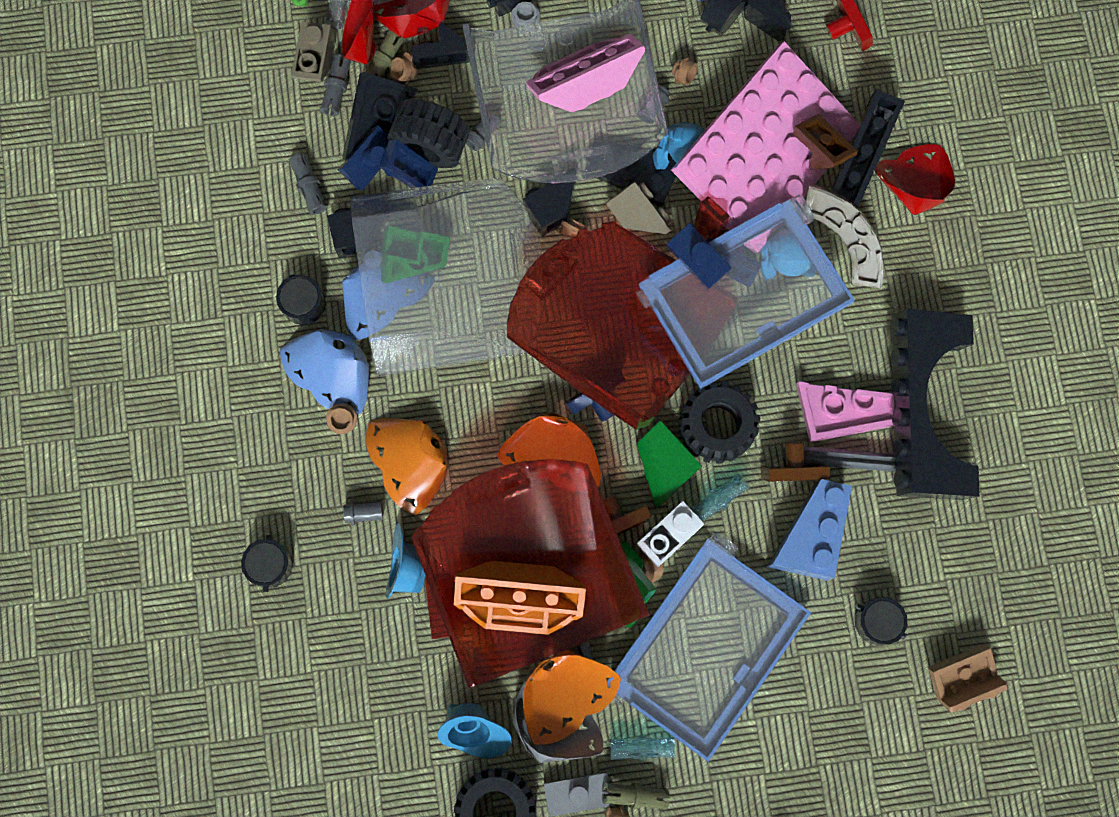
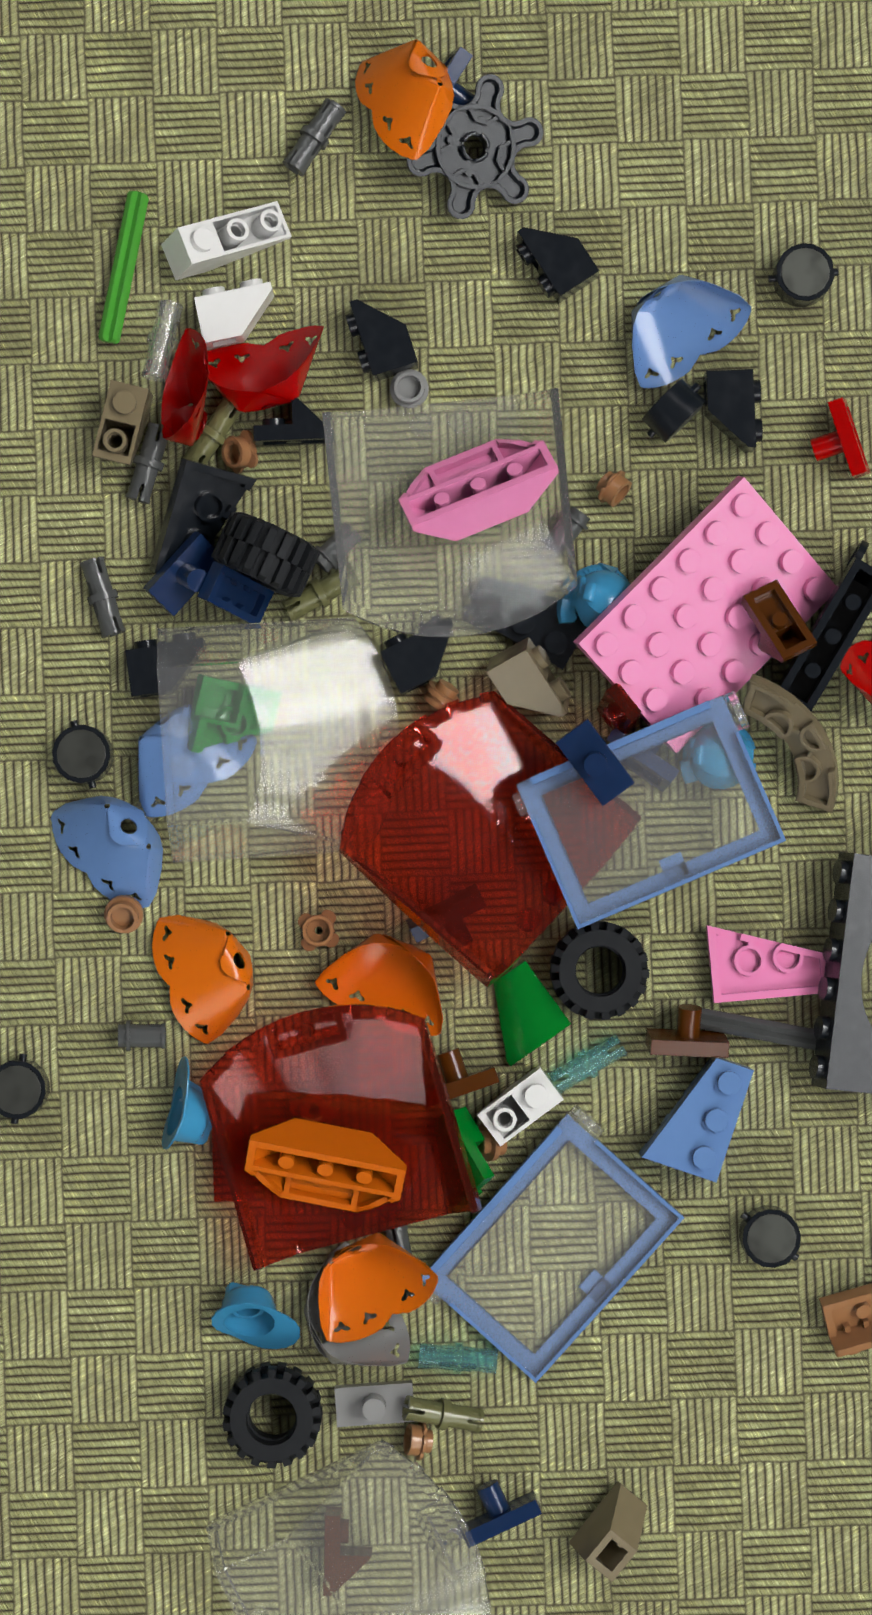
camera: 15 degrees right, 10 degrees up
(470, 167) = (313, 596): none -> olive pin
(499, 408) = (326, 922): none -> medium nougat plate

